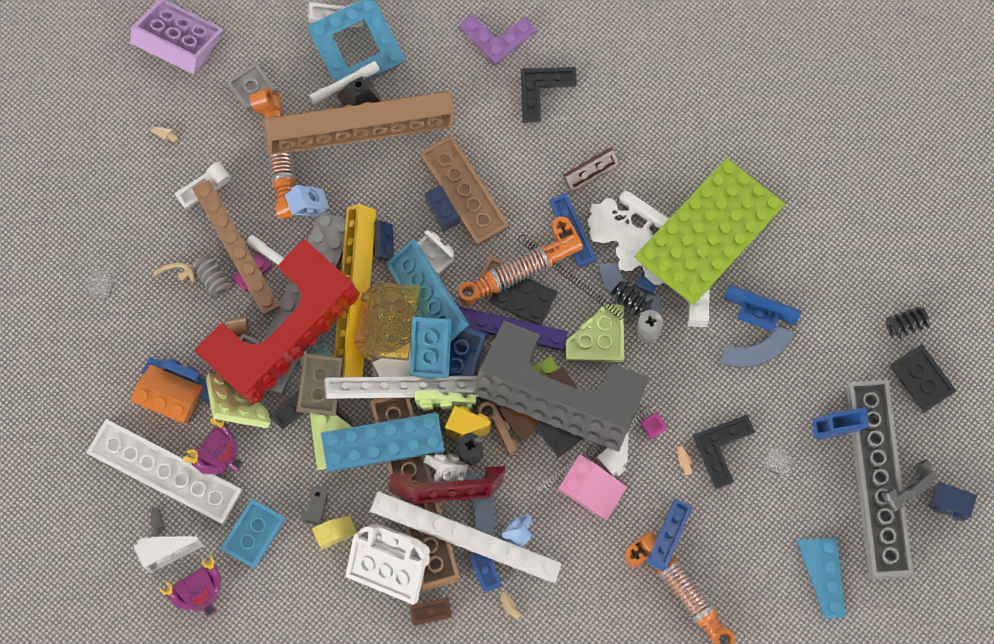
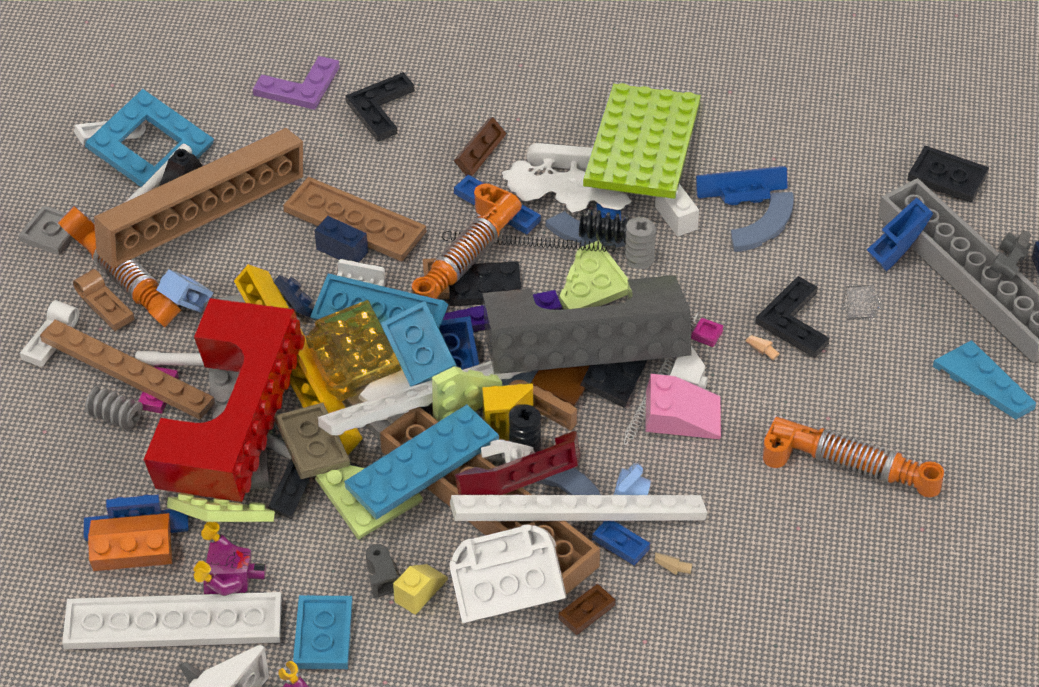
camera: 30 degrees left, 25 degrees down
(187, 273) = (79, 418): tan piece -> none
(252, 174) = (107, 305): none -> medium nougat plate
(669, 534) = (799, 408): blue plate -> none
(907, 321) = (897, 135): black piece -> none

